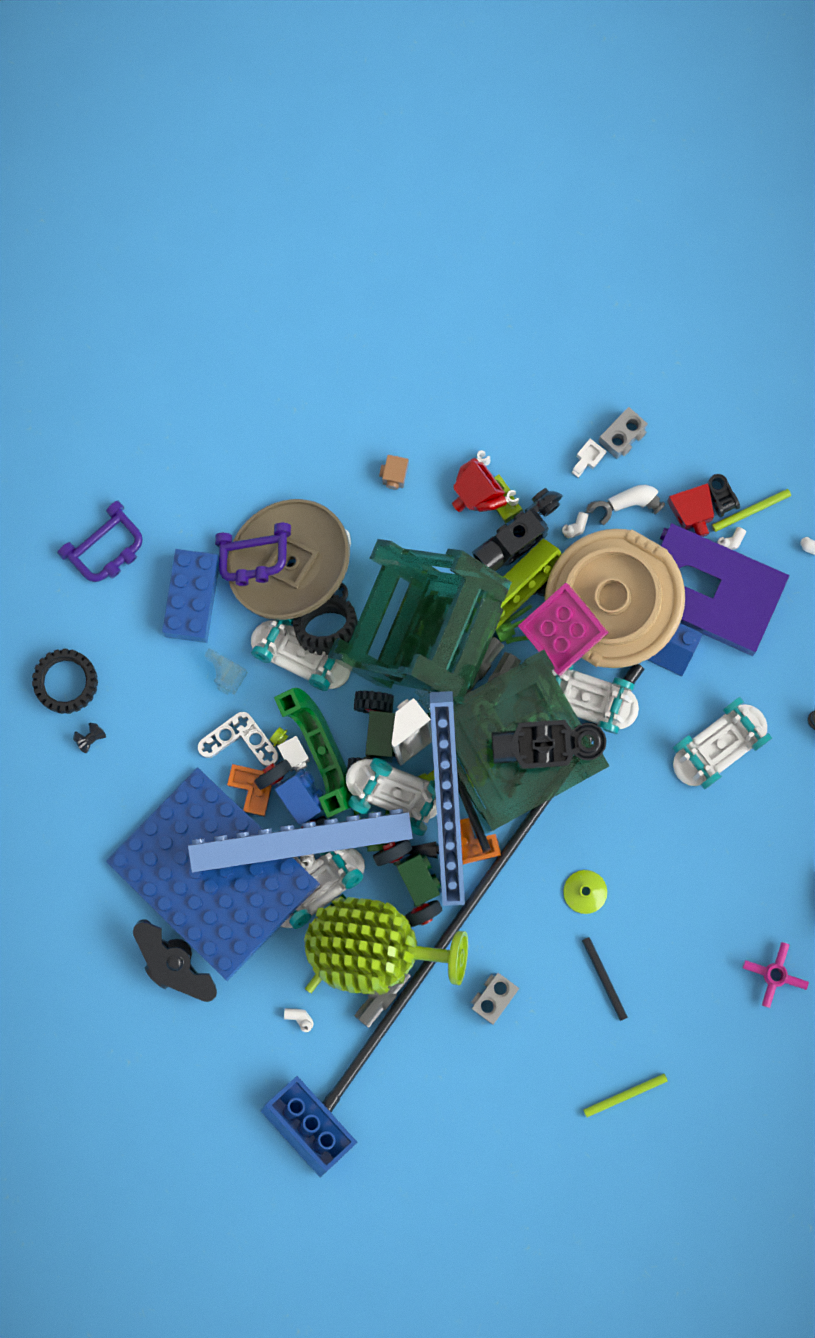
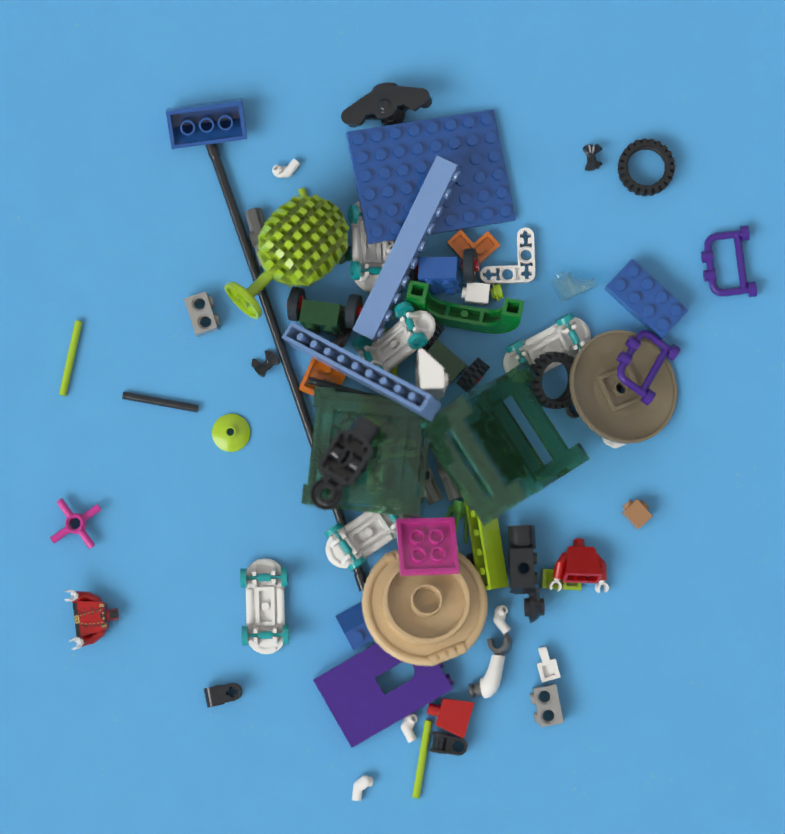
camera: 125 degrees right, 5 degrees up
(505, 905) = (262, 368): none -> black piece

